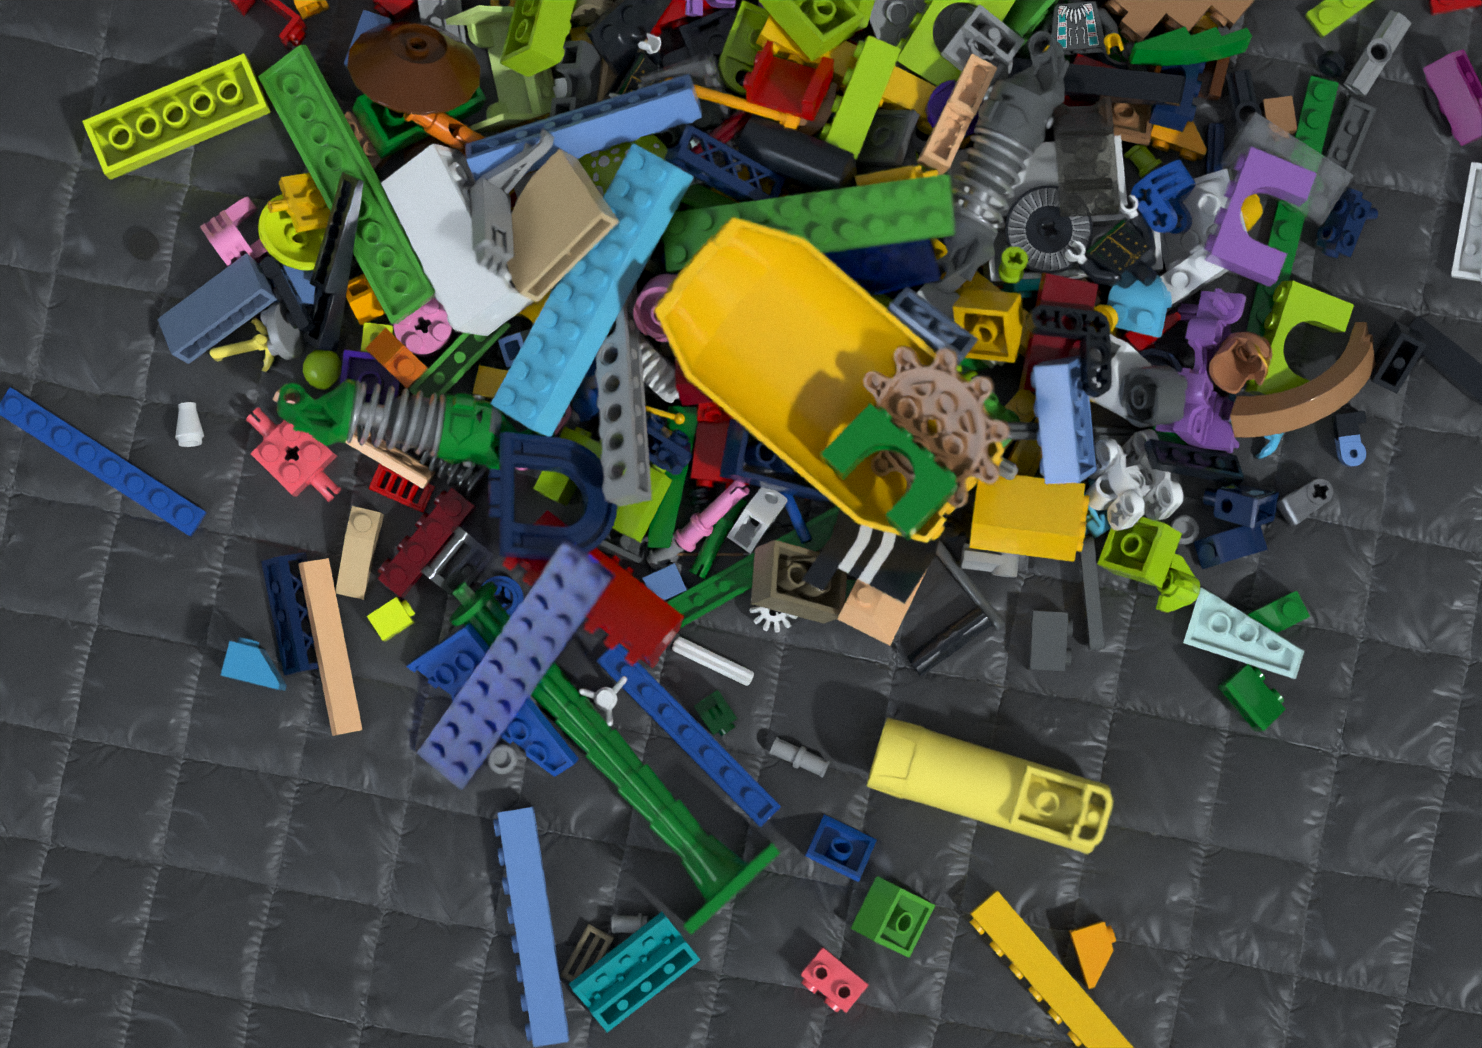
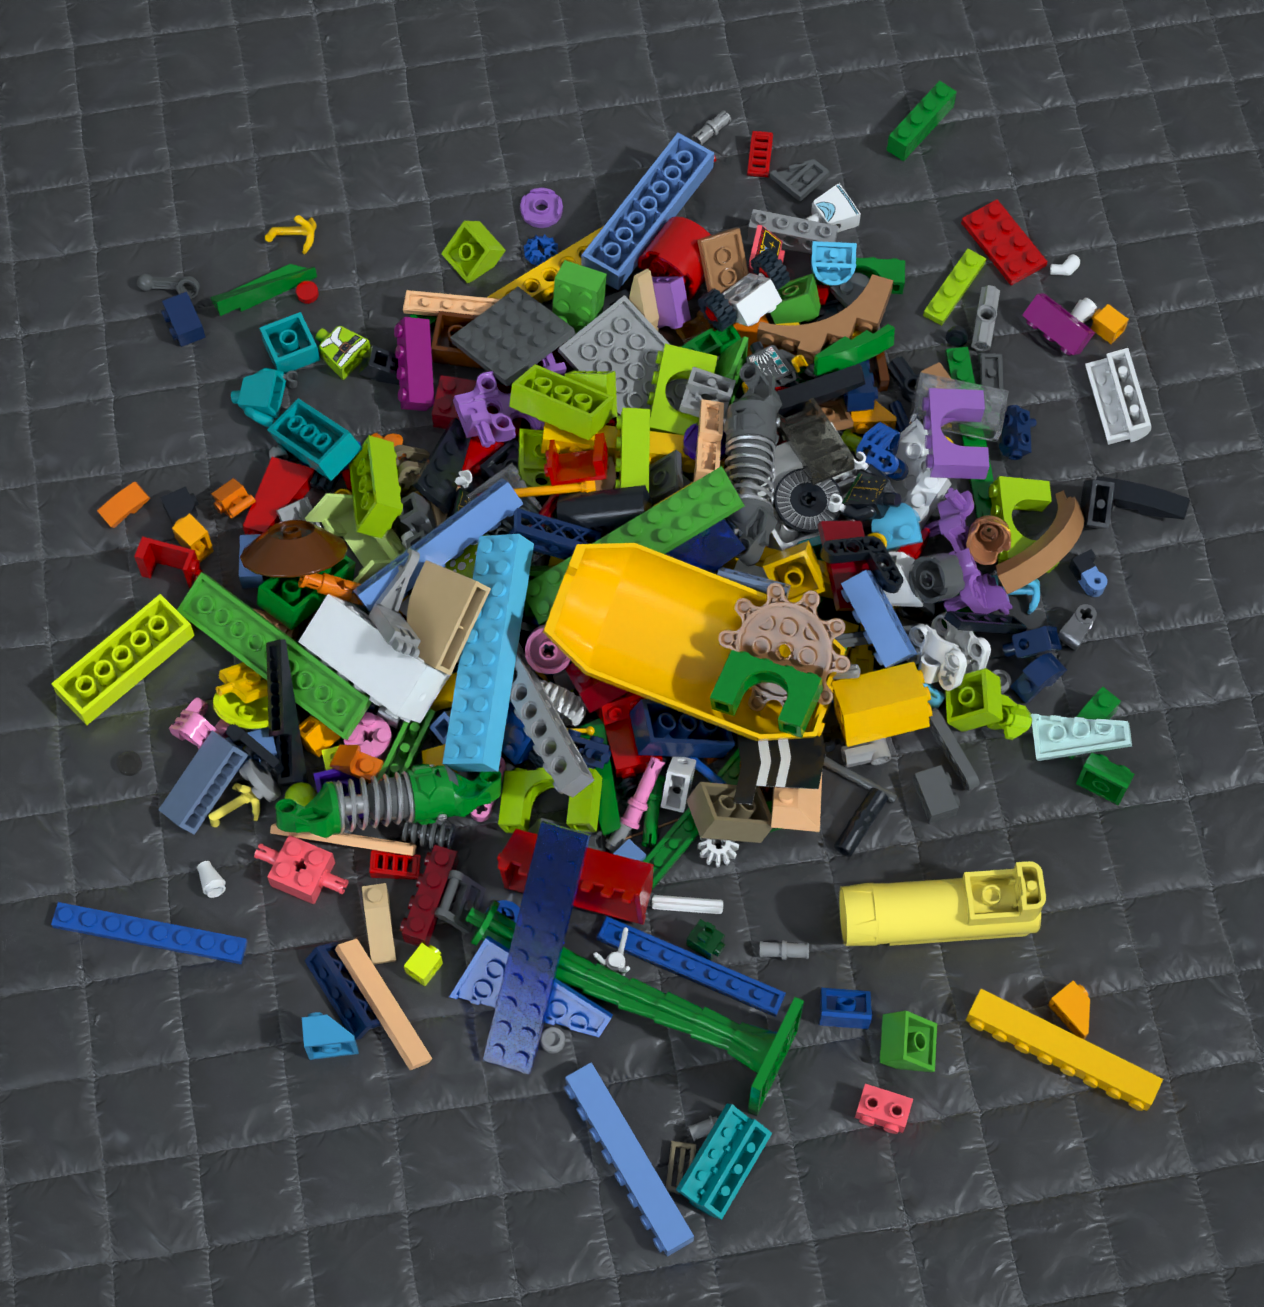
camera: 20 degrees left, 20 degrees down
(552, 455) = (504, 784): dark blue piece -> none
(1012, 265) = (793, 527): lime bush -> none

